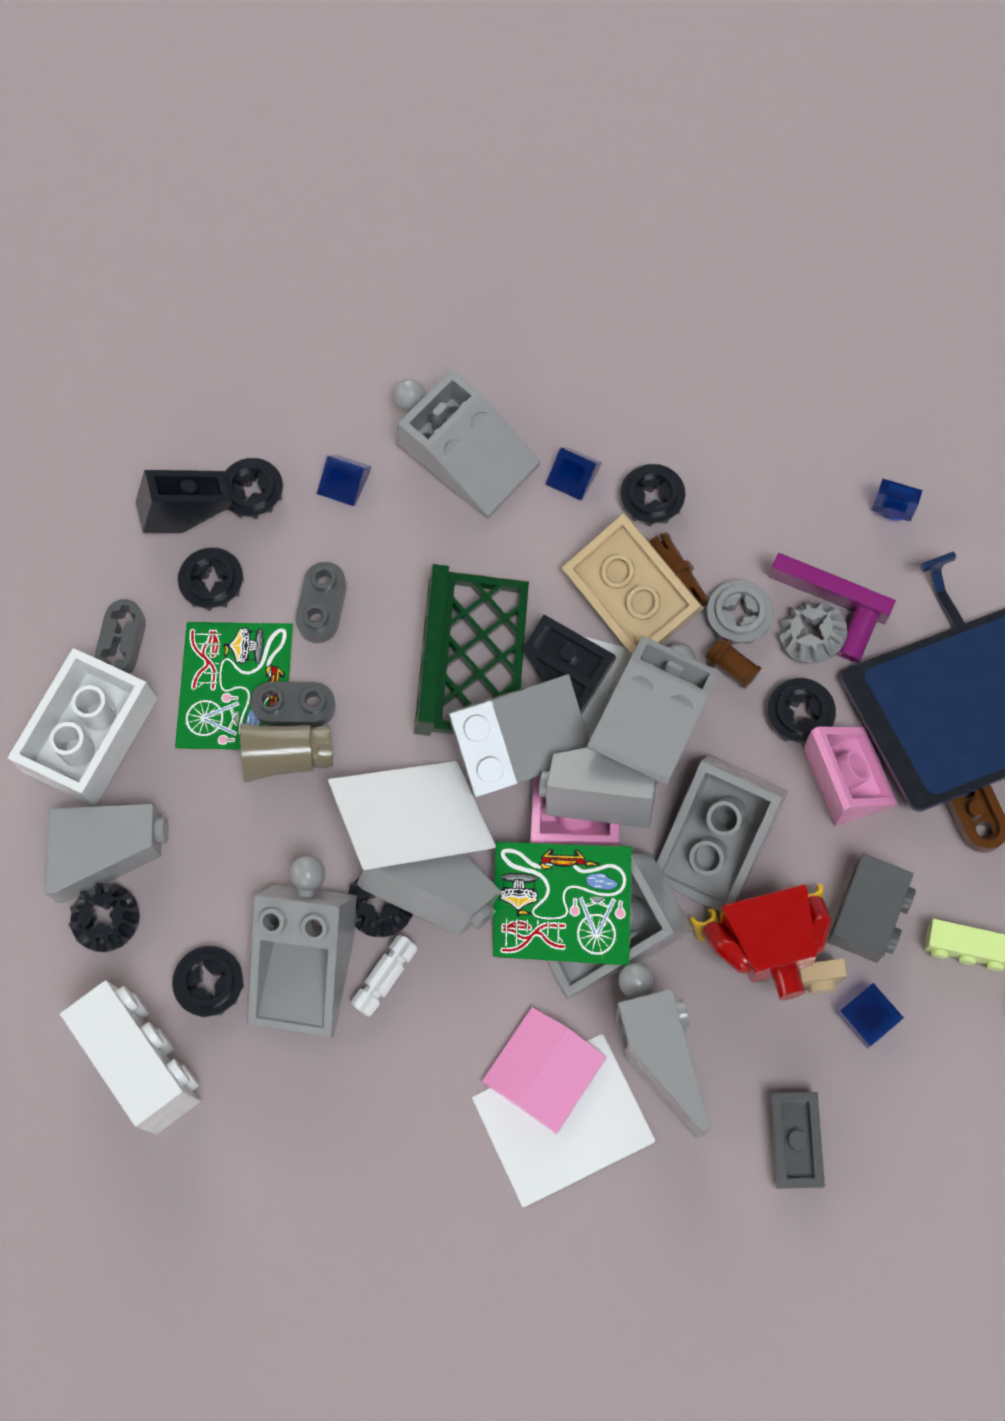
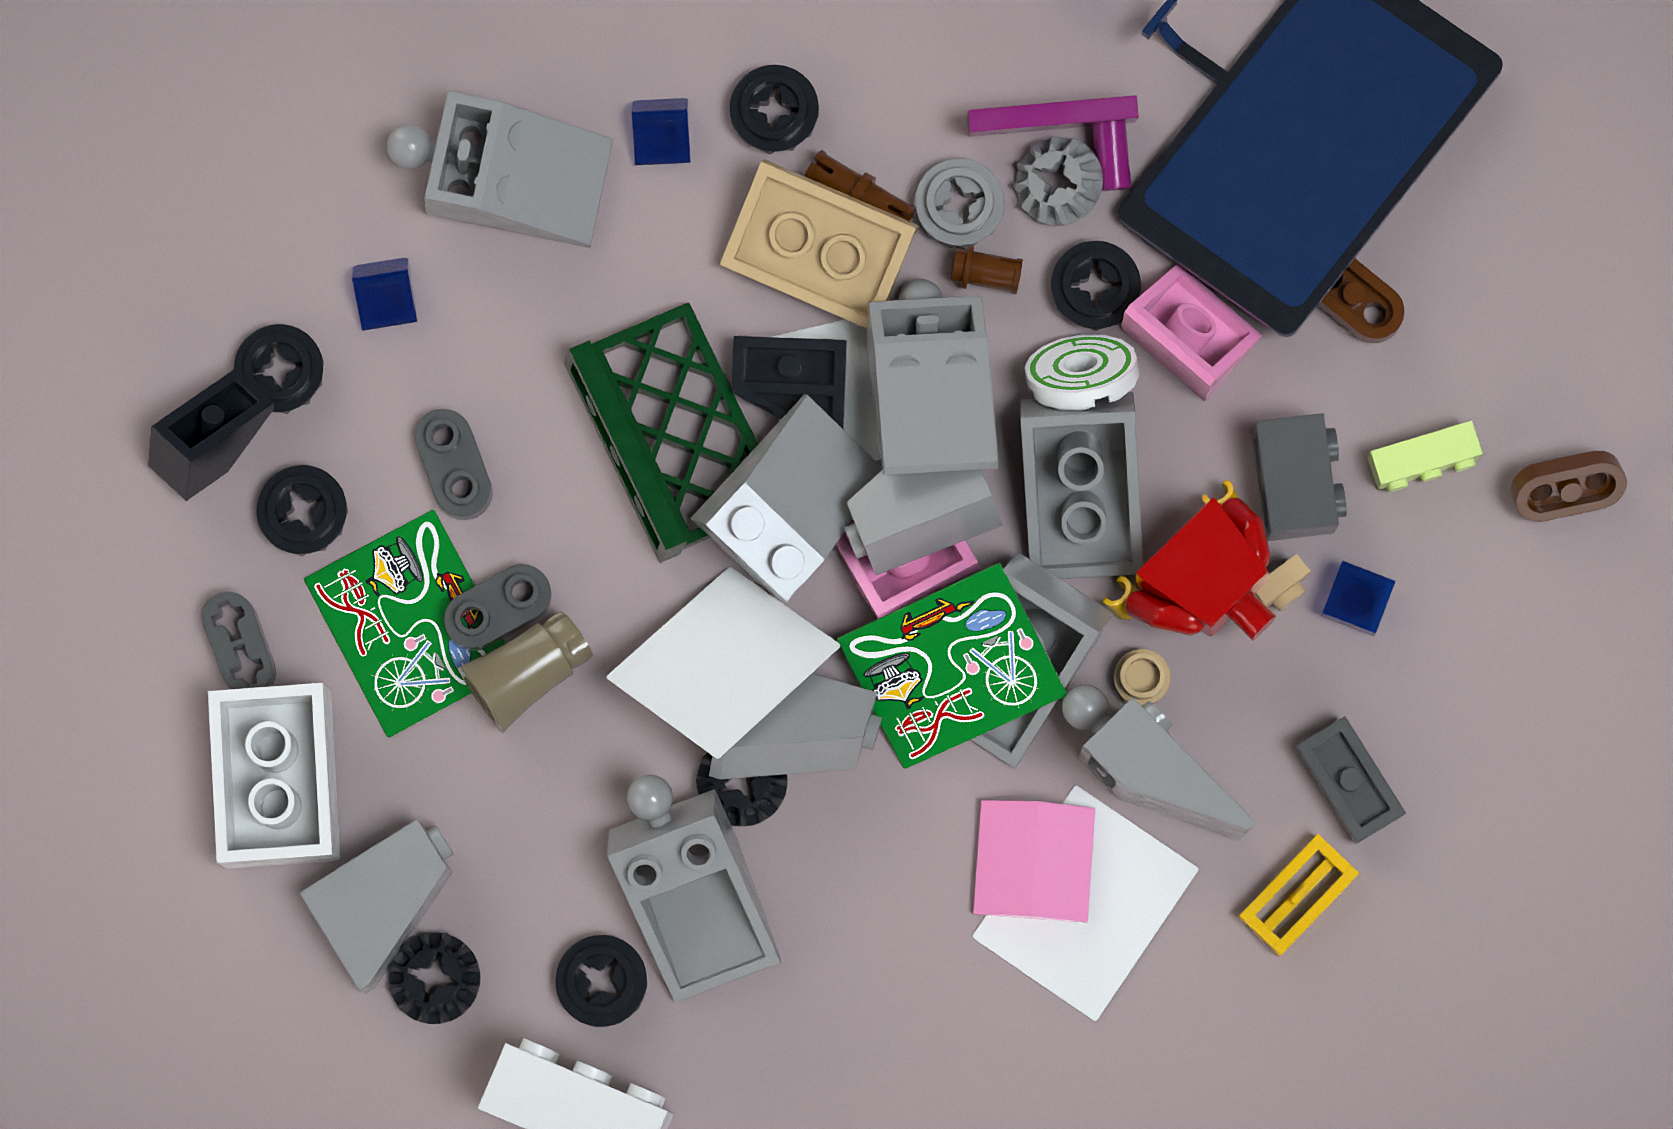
camera: 30 degrees left, 10 degrees up
(384, 975) = (796, 859): white axle -> none
(678, 1212) = (1265, 929): none -> yellow tile
(690, 984) = (1142, 676): none -> tan plate
(758, 754) = (1081, 369): none -> white tile

